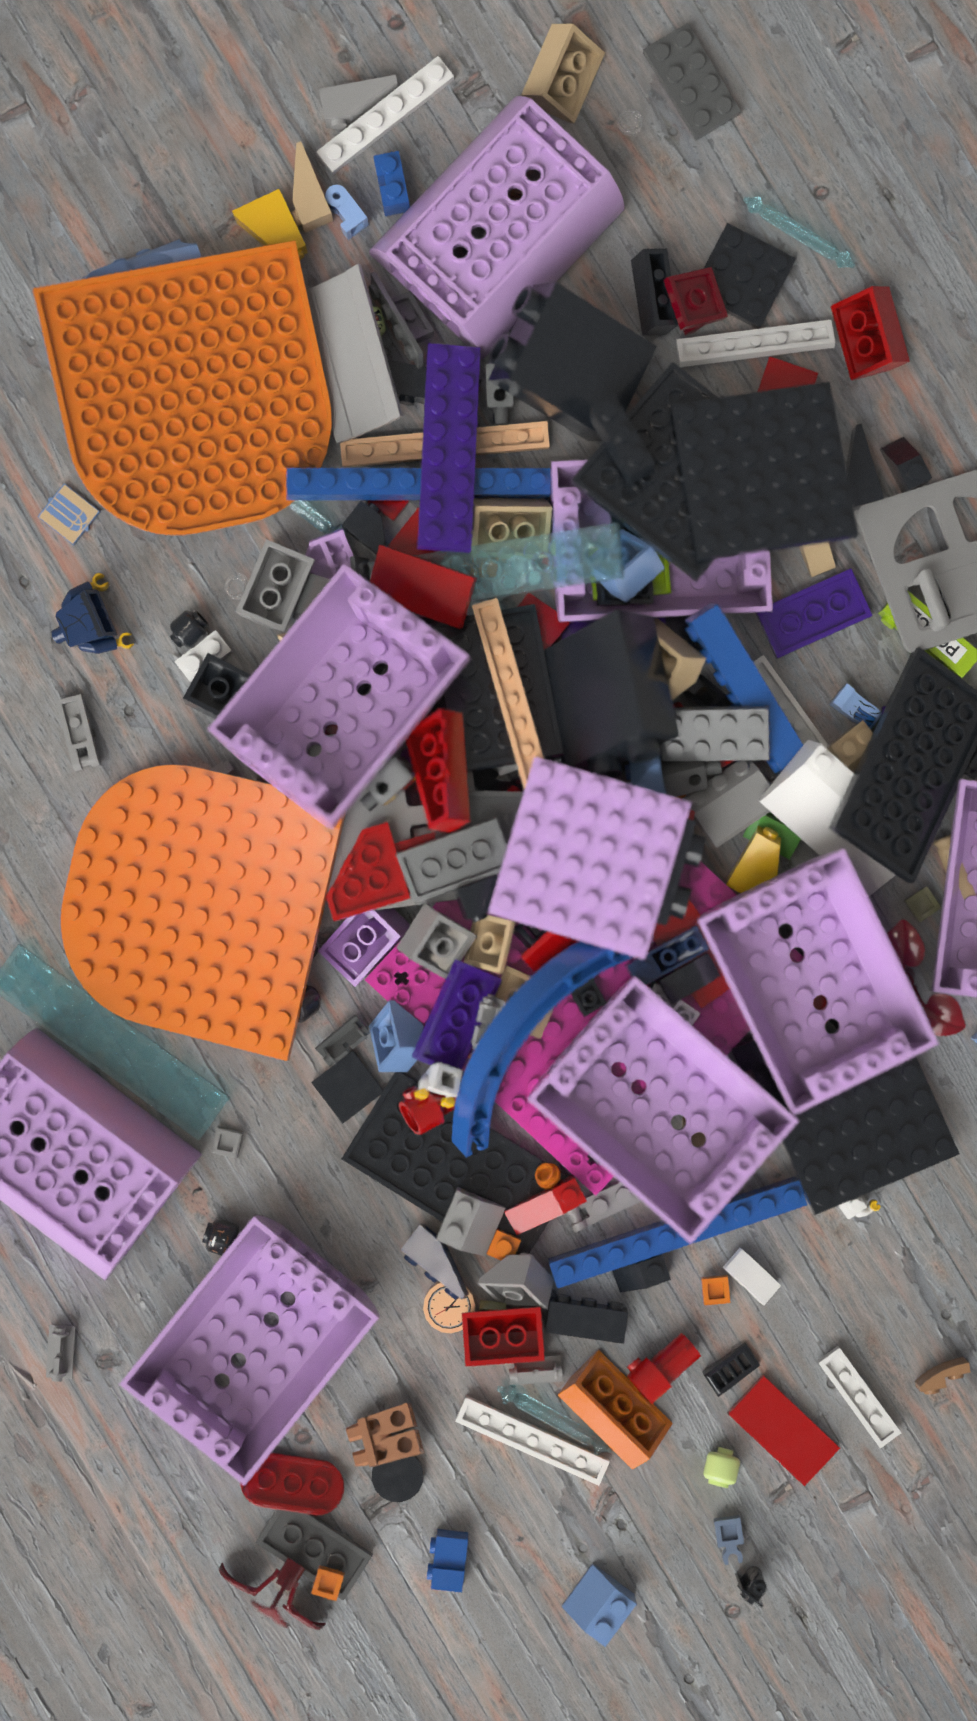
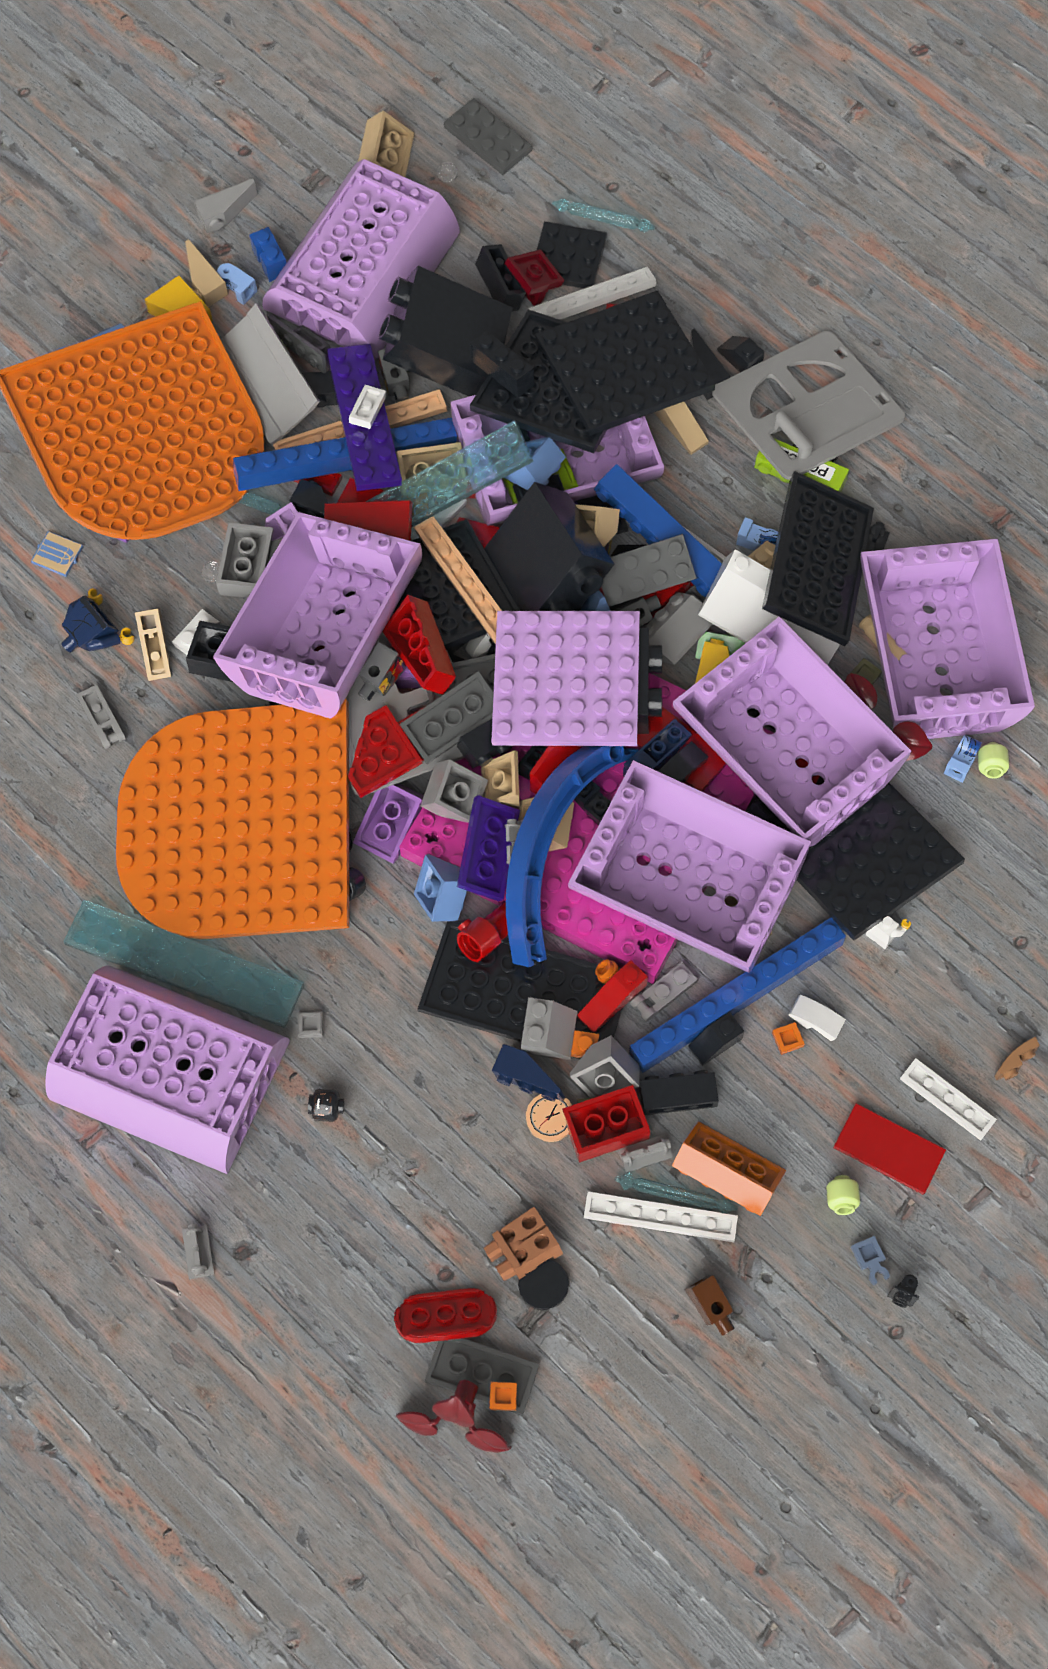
camera: 15 degrees left, 20 degrees down
(153, 658) = (153, 643): none -> tan slope
(189, 629) = (179, 612): black head -> none
(283, 1361) = (344, 1177): lavender slope -> none
(347, 1087) = (407, 949): black tile -> none
(348, 1034) = (392, 907): dark grey hinge -> none
(385, 115) = (251, 213): white plate -> none
(440, 1080) = (489, 902): white piece -> none
(449, 1560) = (613, 1349): blue brick -> none
(454, 445) = (367, 406): none -> white plate
(556, 1542) = (703, 1295): none -> reddish brown torso
(599, 1604) = (767, 1353): medium blue slope -> none
(655, 1375) = (756, 1123): red piece -> none
(728, 1383) = (810, 1119): black slope -> none
(814, 613) = (701, 477): dark purple plate -> none
(870, 332) = (681, 268): red slope -> none

